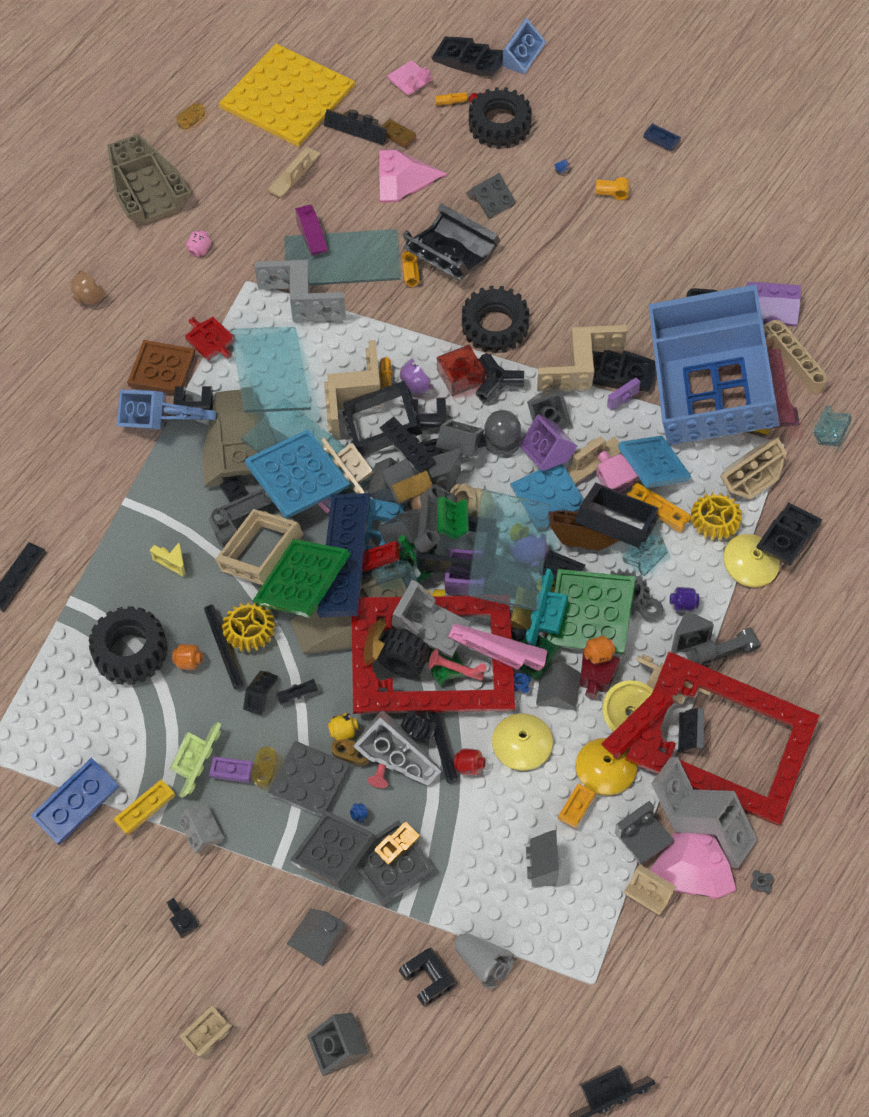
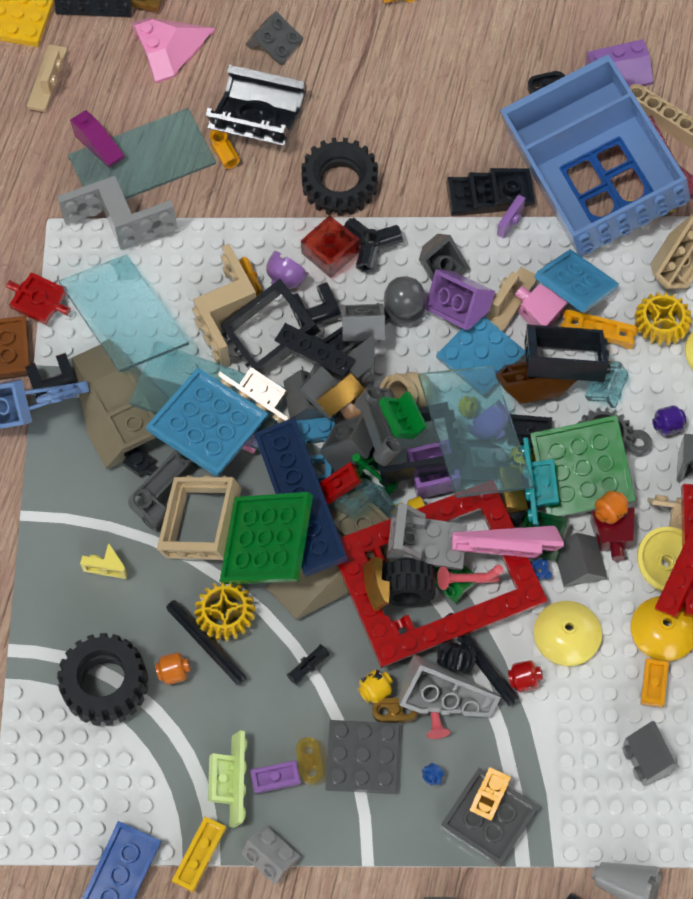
camera: 20 degrees left, 5 degrees up
(257, 692) = (268, 679): black bracket -> none
(333, 849) = (424, 825): dark grey plate -> none
(581, 372) = (454, 192): tan bracket -> none

